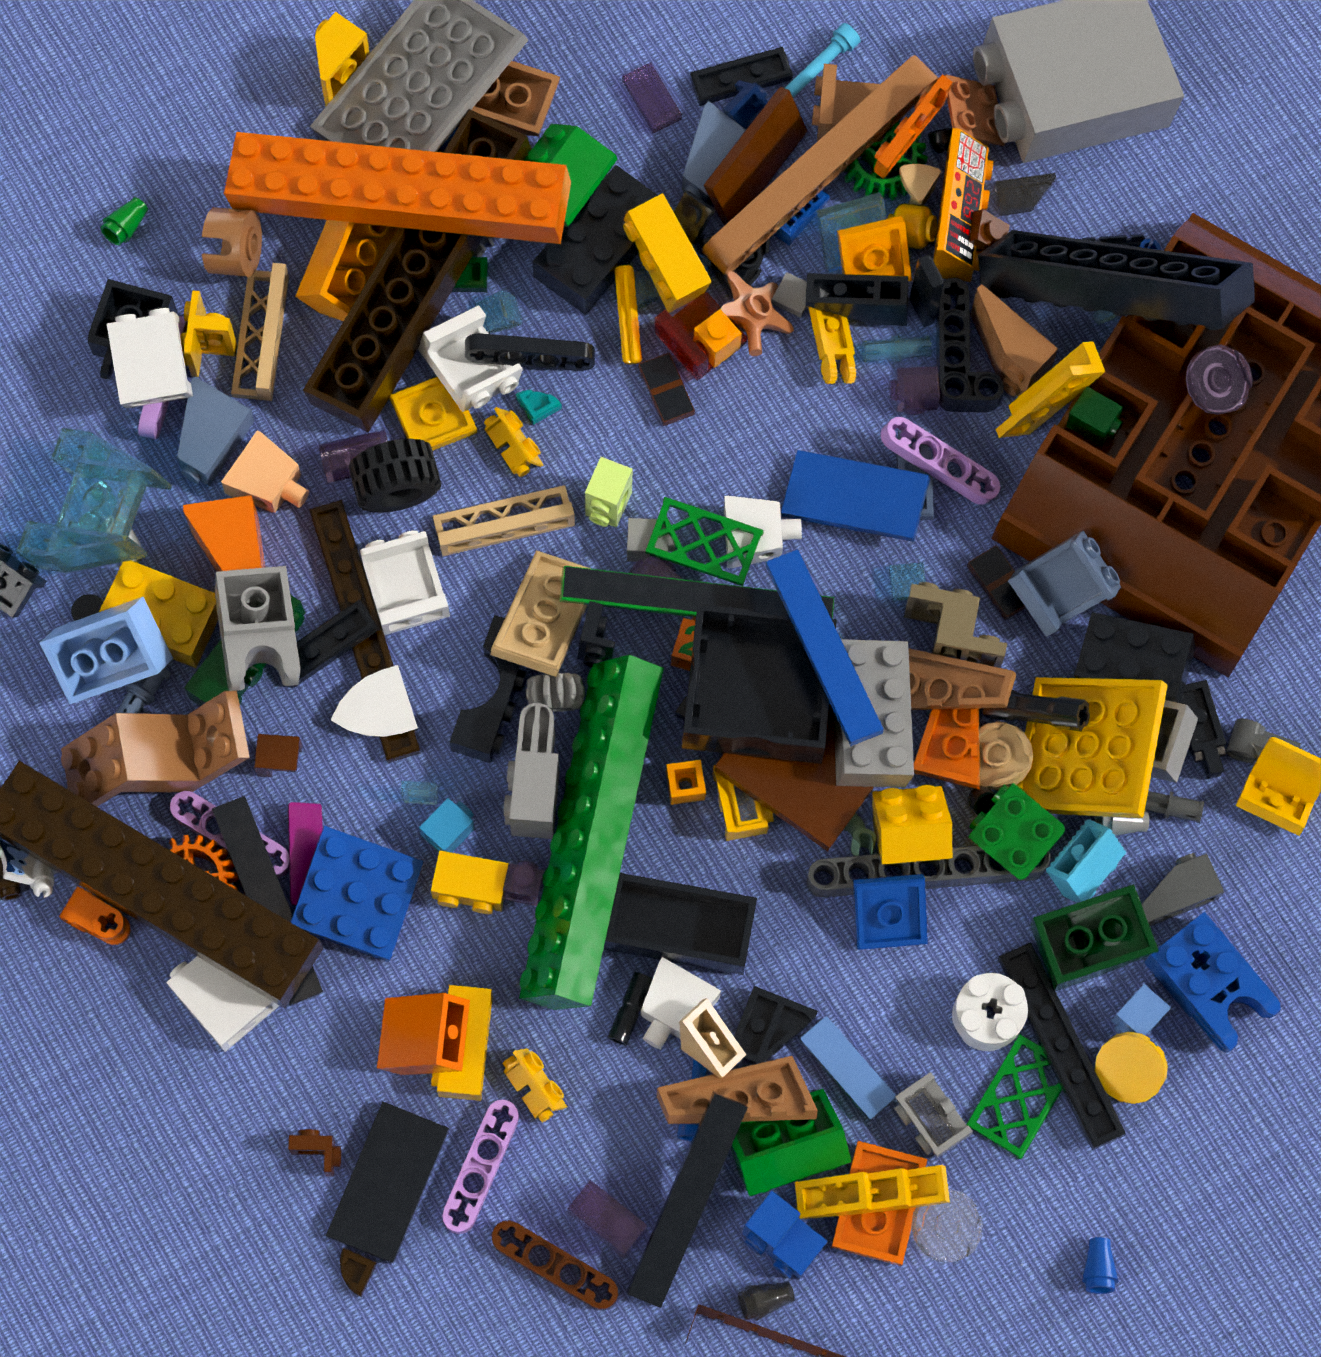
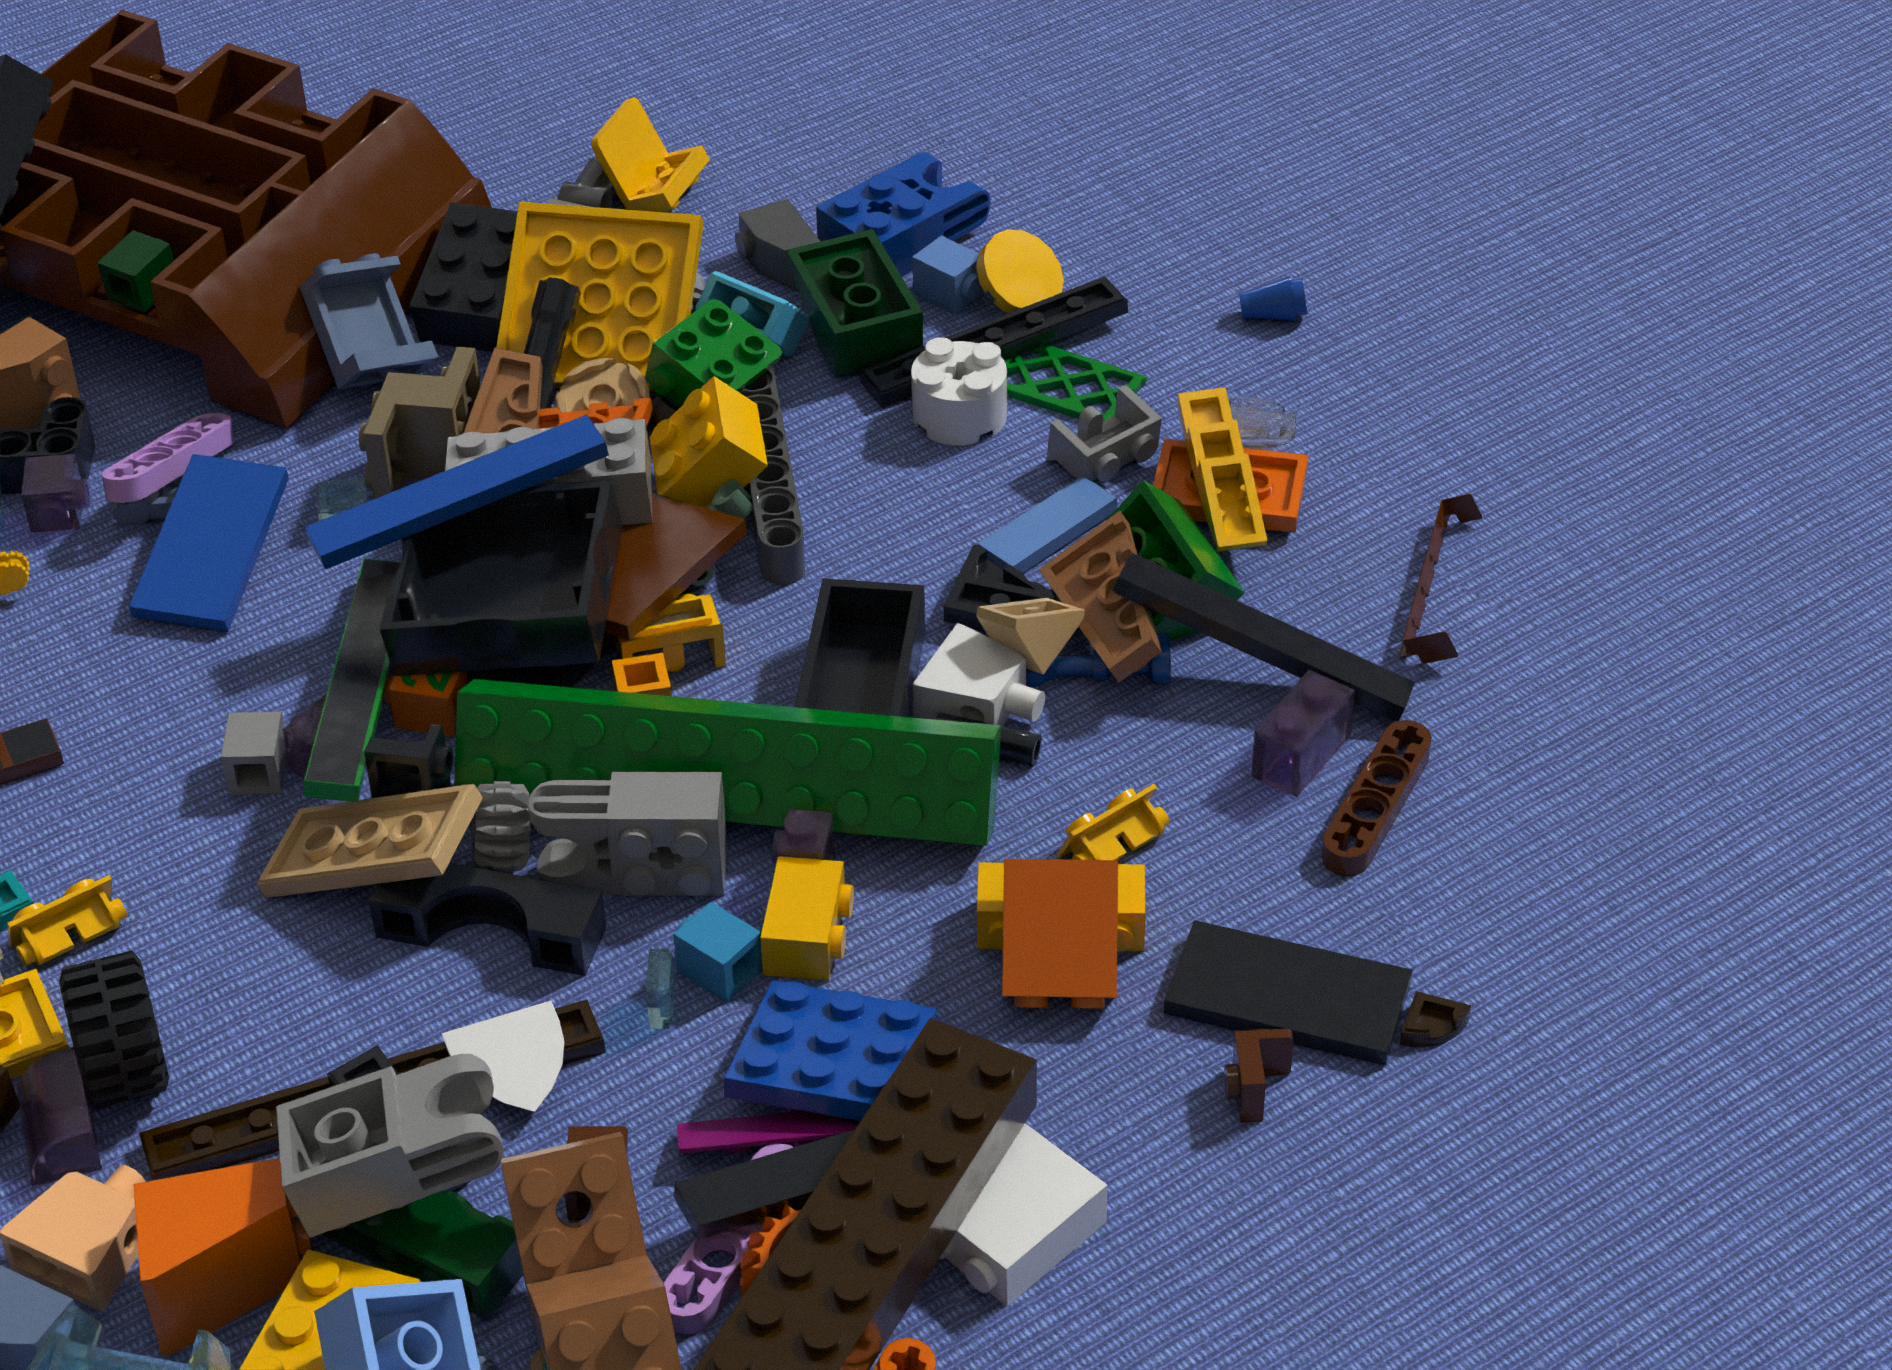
camera: 90 degrees left, 30 degrees down
(404, 582) = (294, 1036): white panel -> none
(478, 1165) = (1243, 893): lavender beam -> none
(504, 528) = (215, 917): tan fence -> none
(608, 492) = (175, 781): yellowish green brick -> none
(712, 568) = (291, 695): green window -> none
(762, 515) = (249, 644): white torso -> none
(764, 1299) = (1383, 584): clear smoke cone -> none
(783, 1236) = (1289, 558): blue brick -> none
(890, 911) = (828, 480): blue tile -> none
(993, 573) = (340, 419): black tile -> none
(1053, 391) = (89, 321): yellow fence -> none
(1219, 379) = (108, 150): clear purple tile -> none

